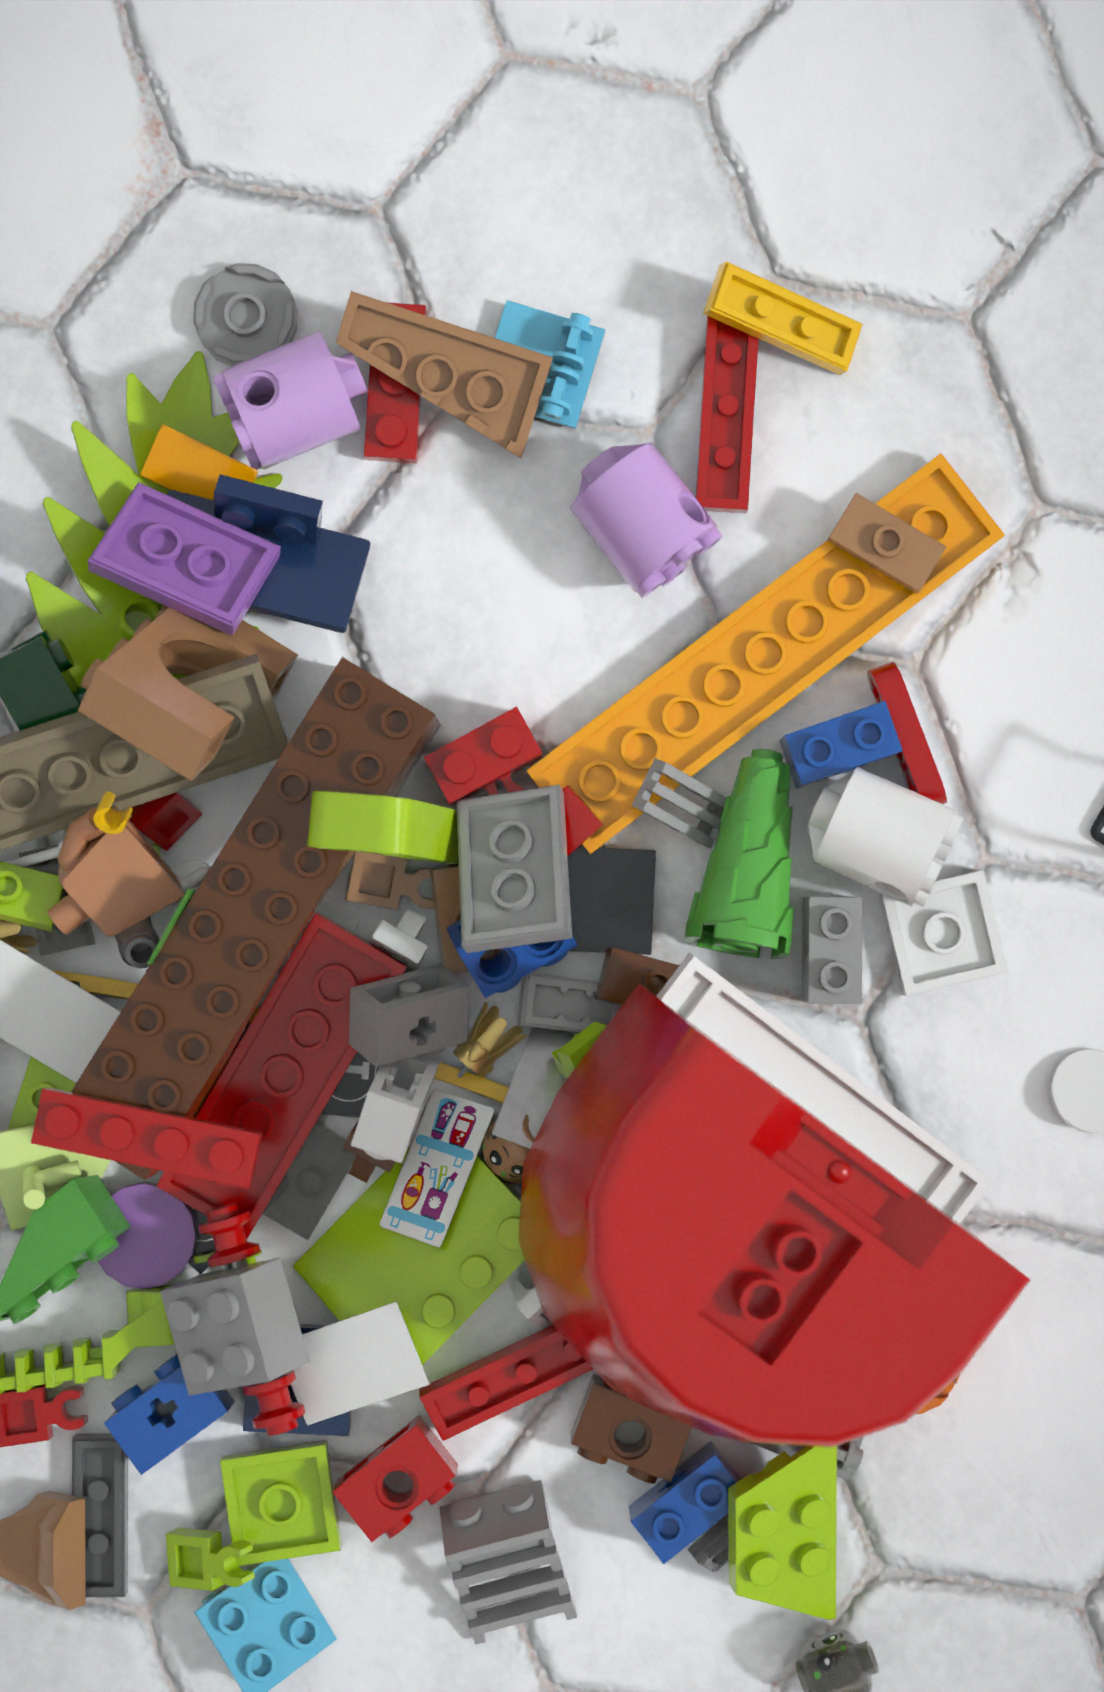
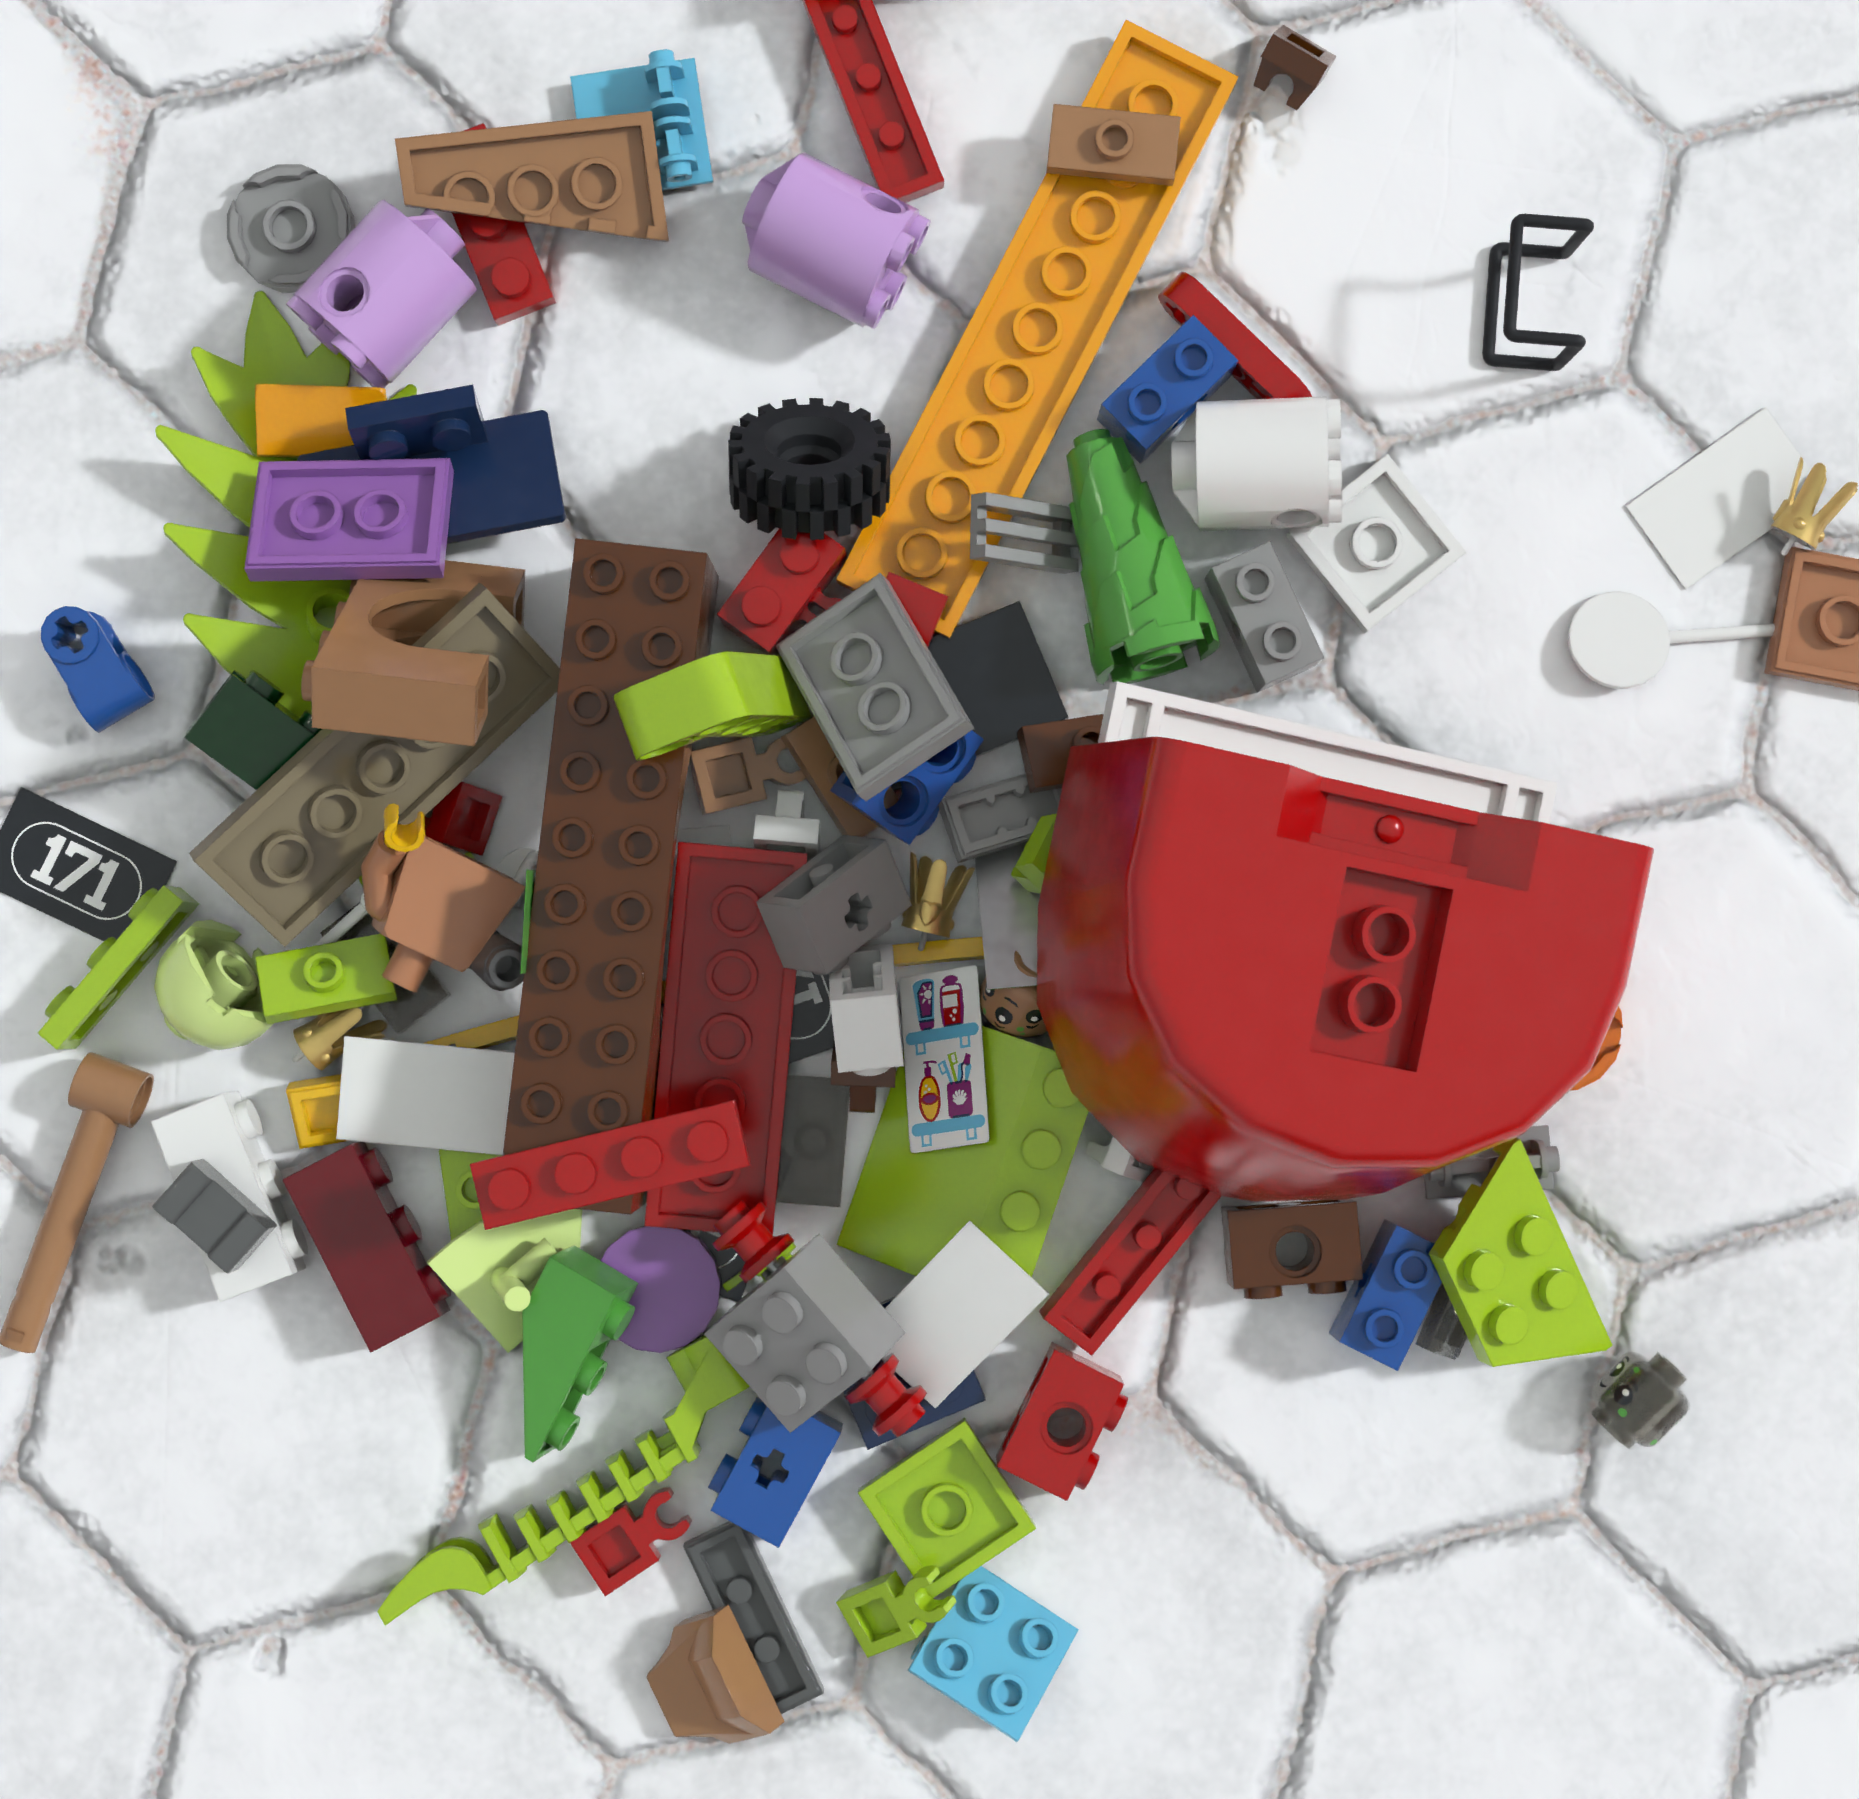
camera: 30 degrees left, 0 degrees up
(501, 1537) = (1202, 1432): light grey plate -> none
(543, 681) = (809, 468): none -> black tyre
(1056, 541) = (1296, 57): none -> reddish brown tile

